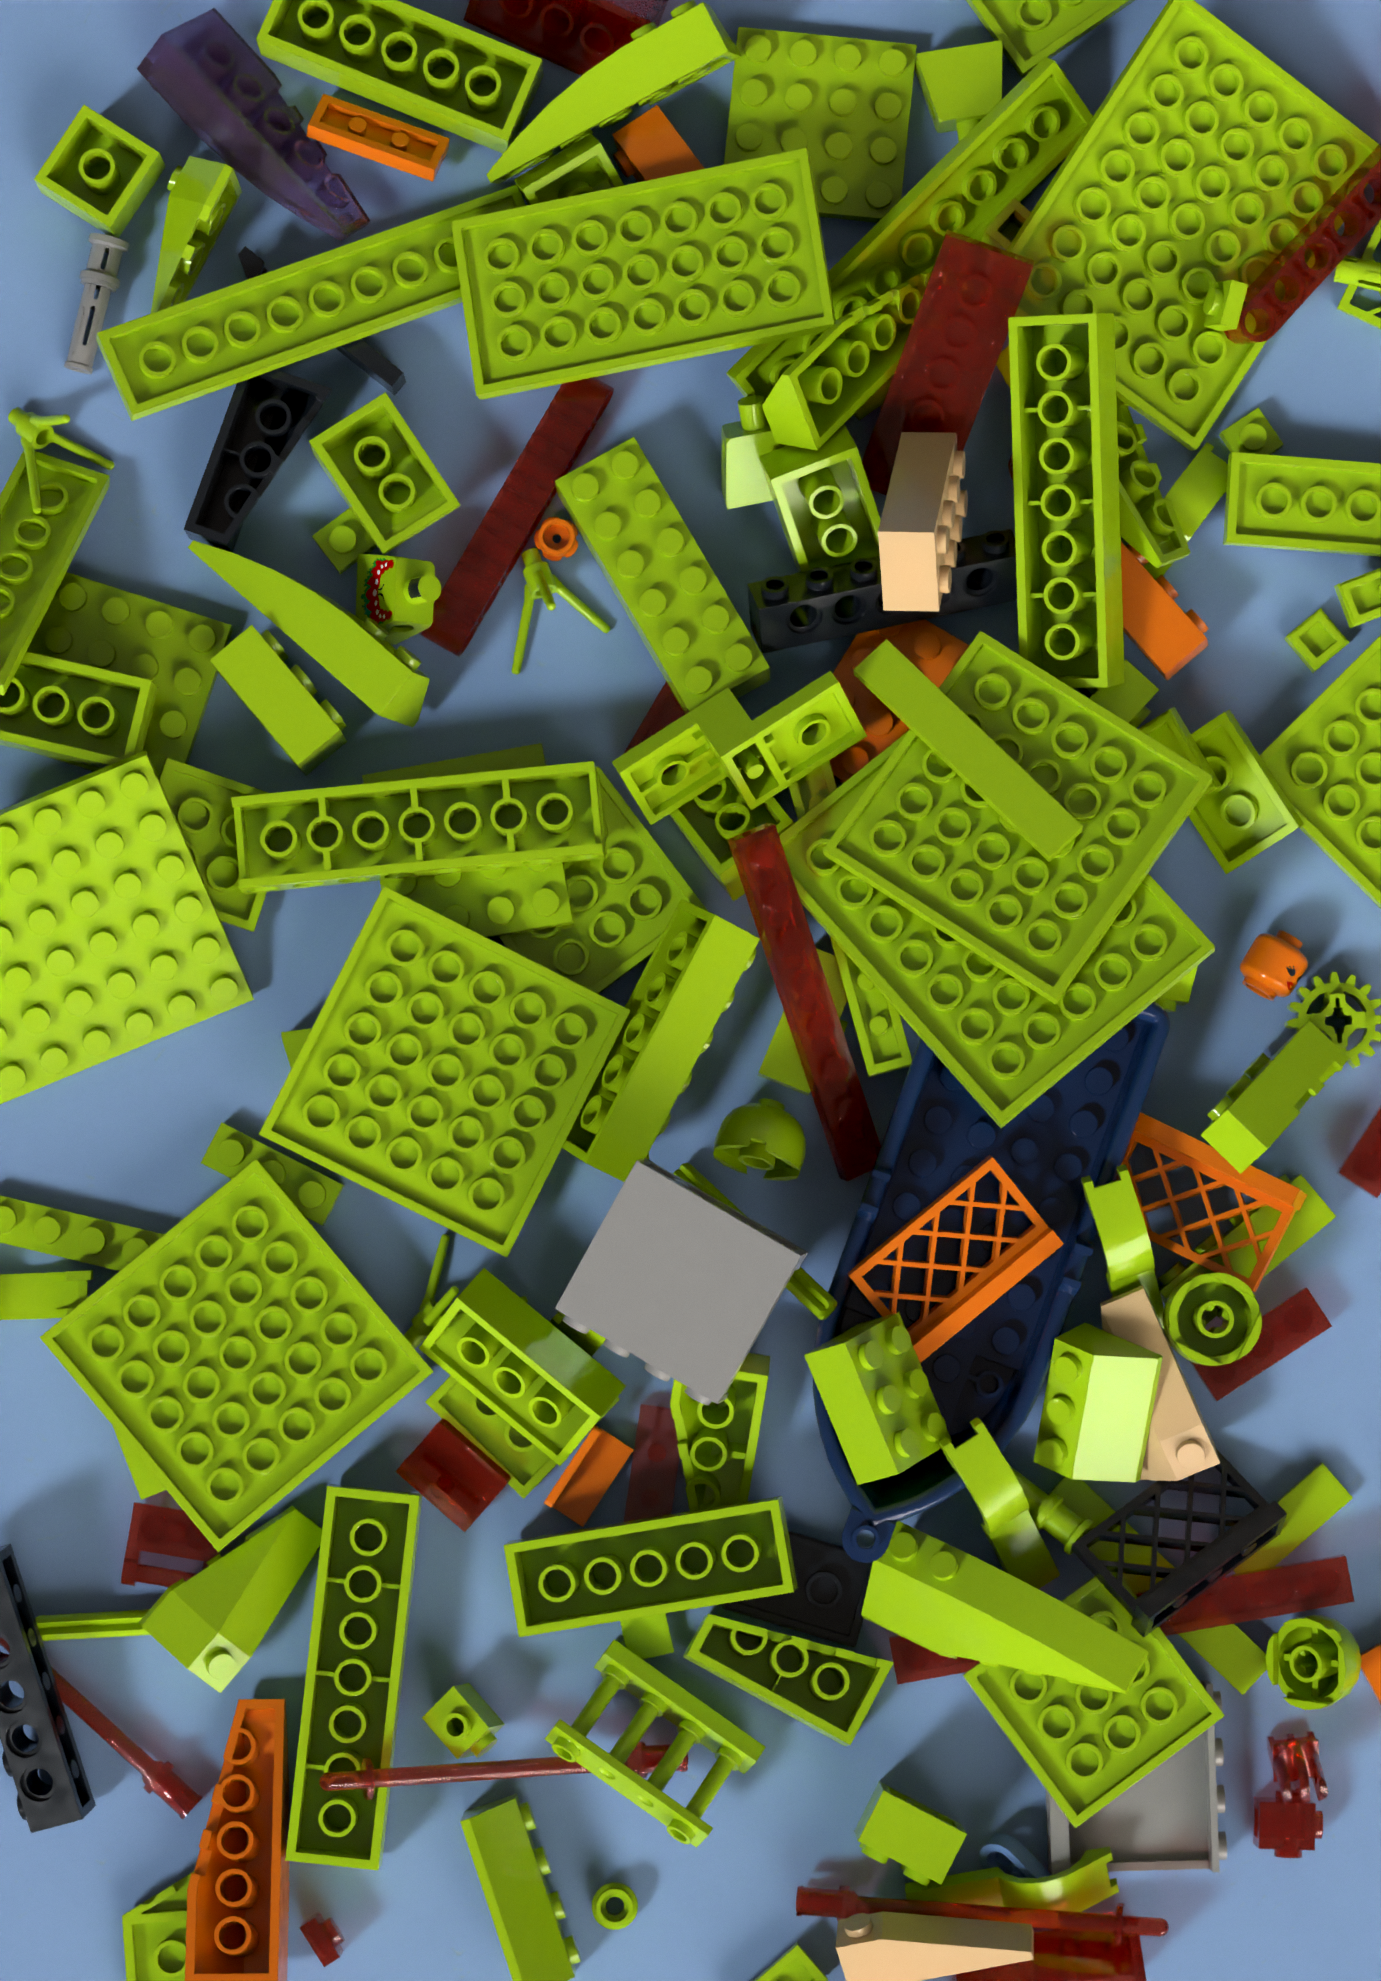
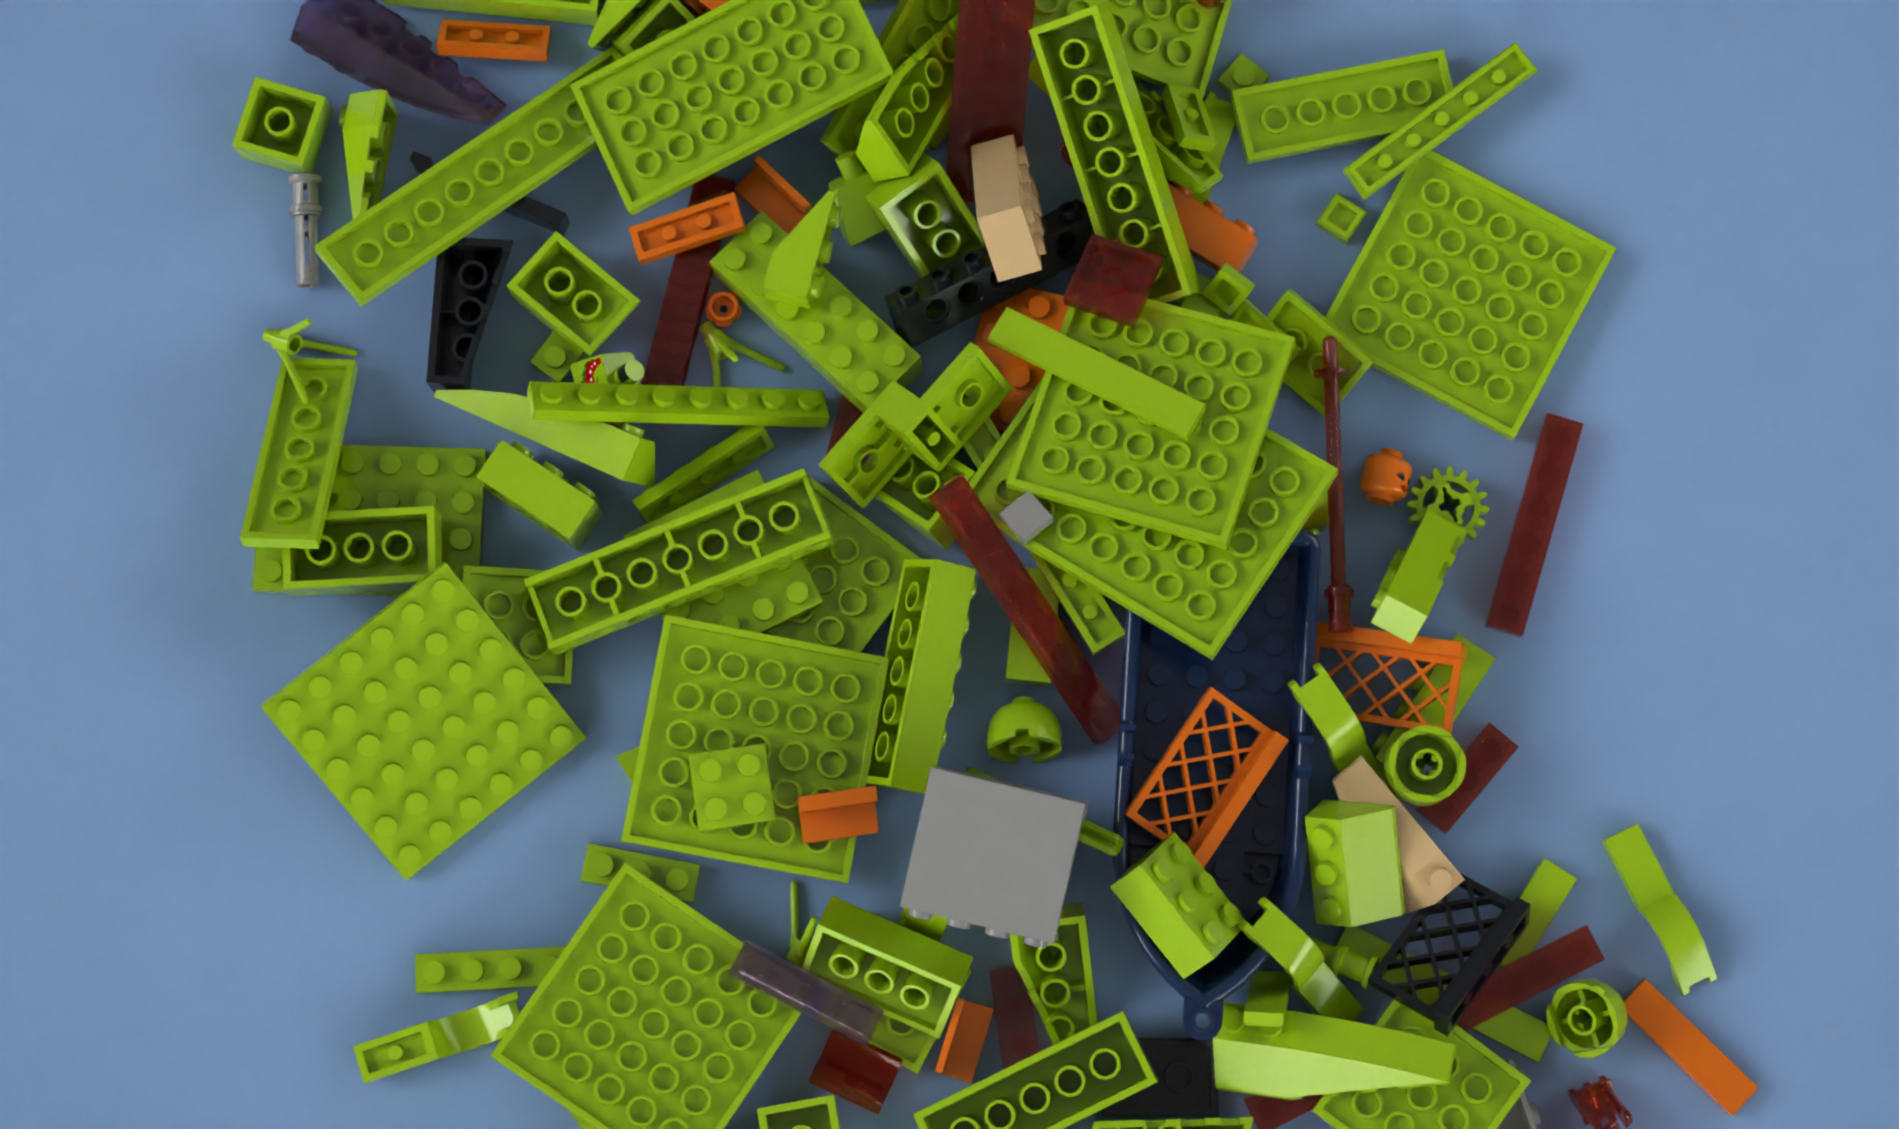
camera: 15 degrees left, 5 degrees down
(403, 1109) = (731, 787): none -> lime plate
(421, 1370) = (806, 993): none -> plate
(468, 642) = (676, 404): none -> lime plate
(478, 728) = (704, 472): none -> lime plate
(518, 1176) = (838, 814): none -> orange panel
(540, 434) = (687, 228): none -> orange plate
(653, 424) = (771, 193): none -> orange panel
(658, 512) = (798, 259): none -> lime slope
(835, 896) = (1026, 517): none -> light grey tile
(949, 1534) = (1267, 999): none -> lime tile
(1020, 644) = (1113, 280): none -> clear red plate
(1154, 691) = (1228, 289): none -> lime plate
(1170, 471) = (1188, 118): none -> lime plate
(1176, 1085) = (1339, 591): none -> clear red bar

